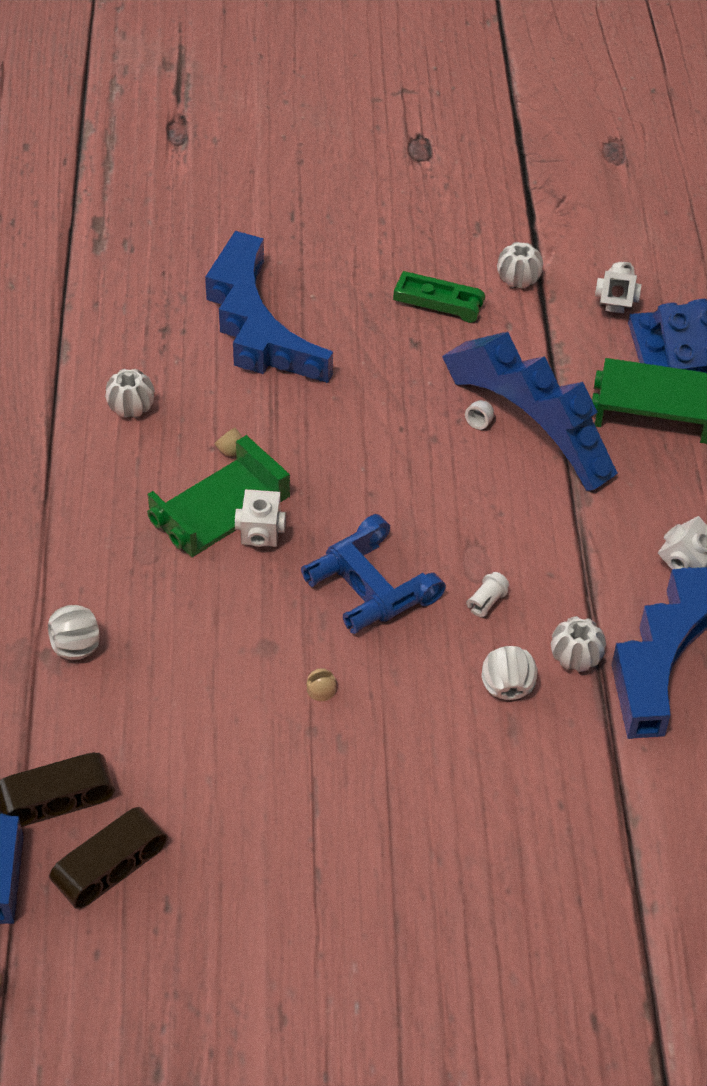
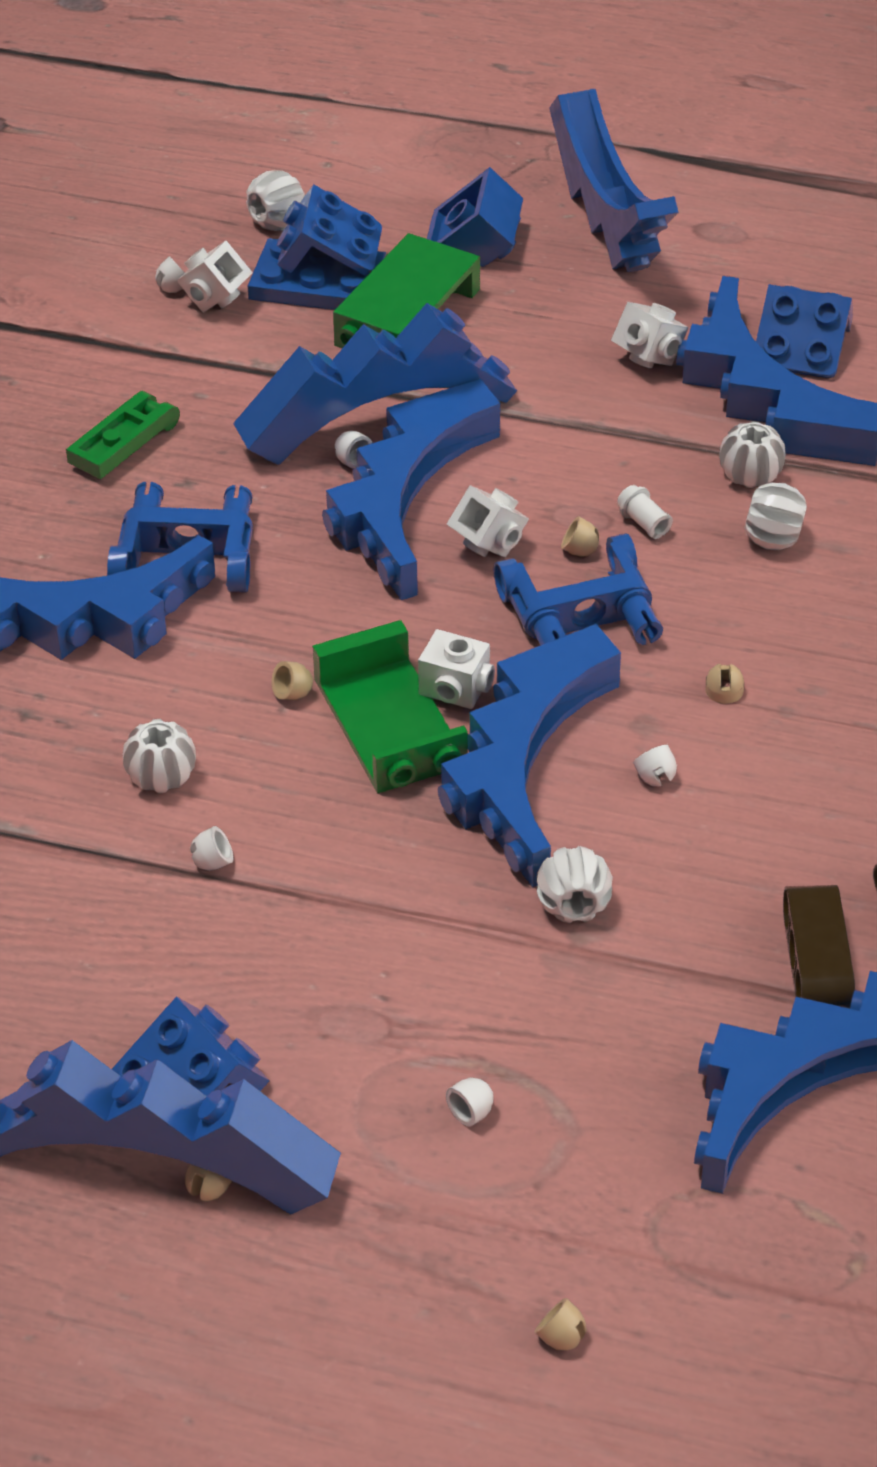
camera: 70 degrees left, 5 degrees down
(69, 440) = (211, 849): none -> white hinge
(209, 566) = (505, 737): none -> blue arch
(212, 659) = (656, 763): none -> white hinge
(359, 369) = (153, 530): none -> blue connector
(421, 500) = (488, 521): none -> white brick
(440, 562) = (580, 538): none -> tan hinge
(460, 439) = (391, 472): none -> blue arch
(520, 265) = (116, 346): white piece -> none

